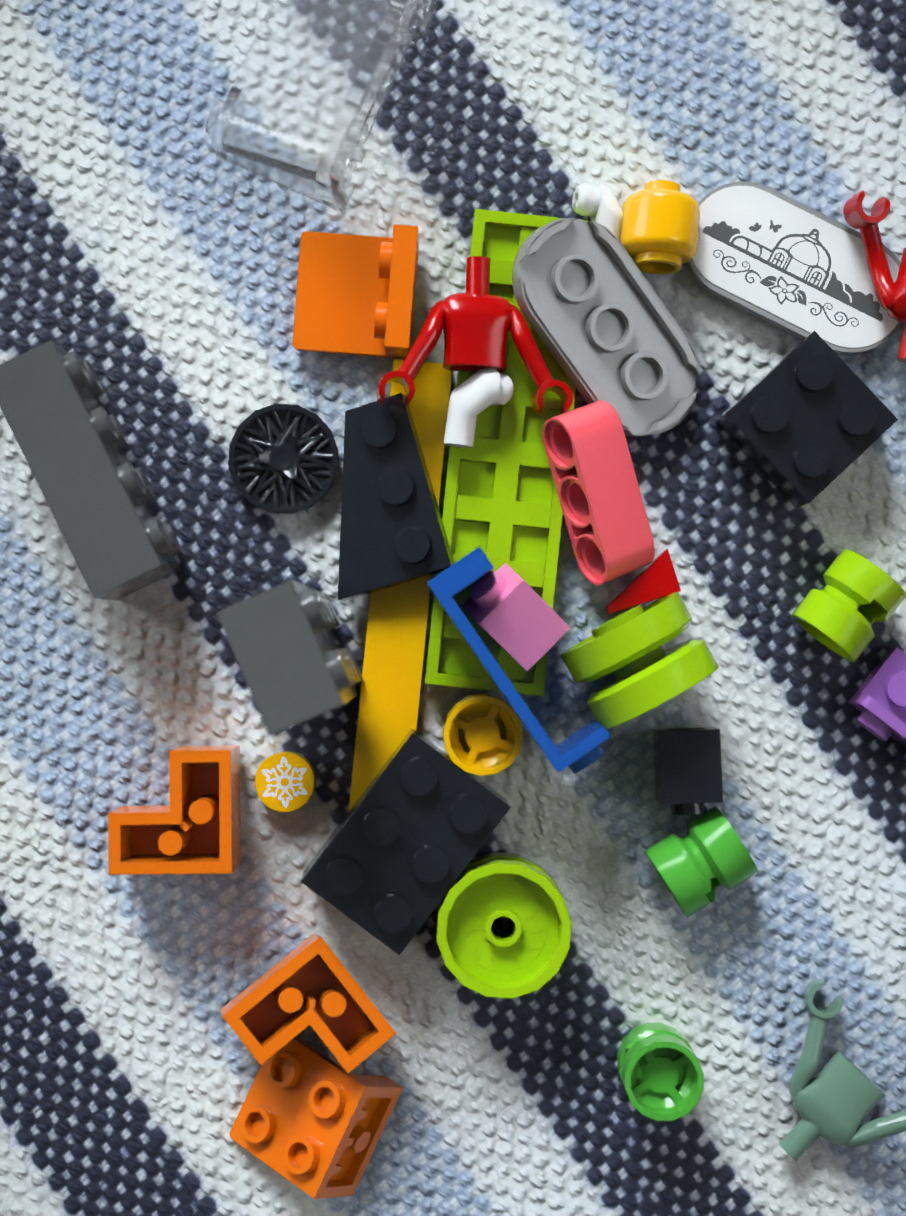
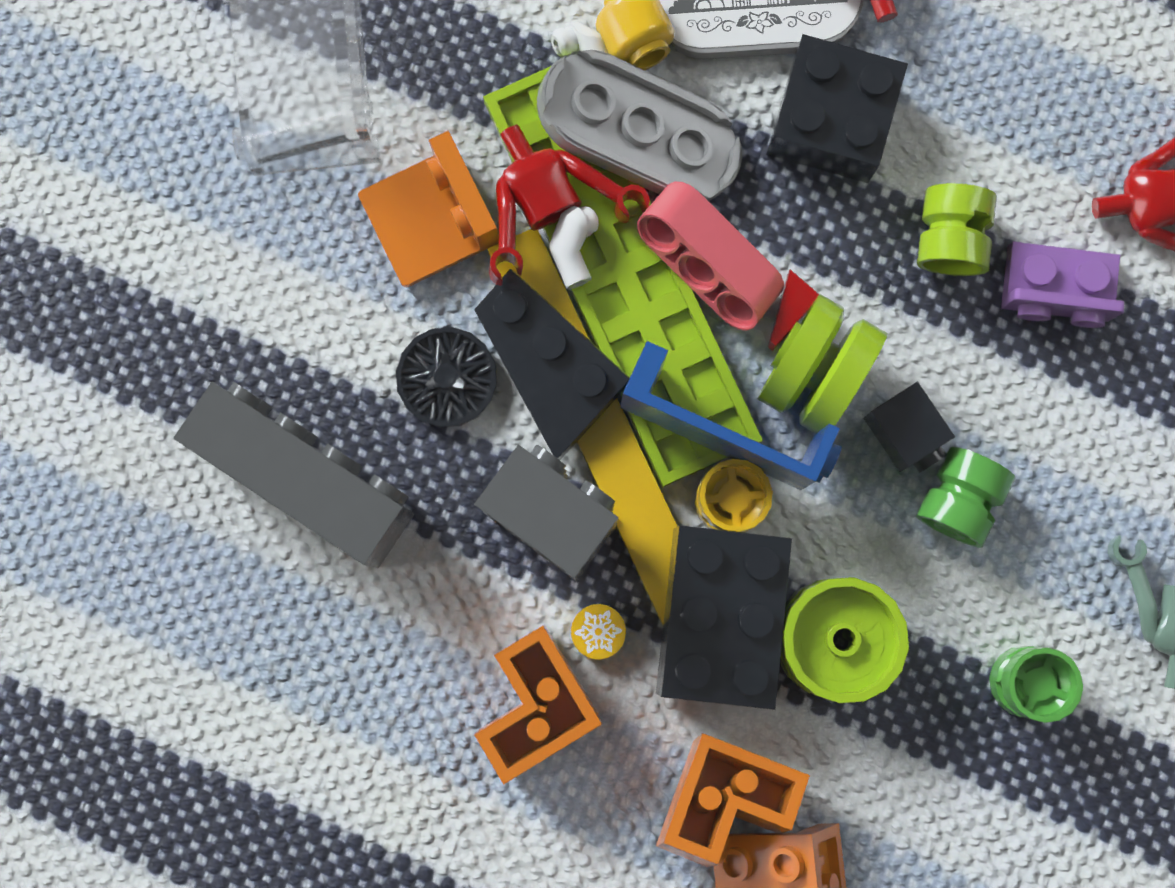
camera: 25 degrees left, 5 degrees down
(515, 615) = (706, 385): bright pink brick -> none

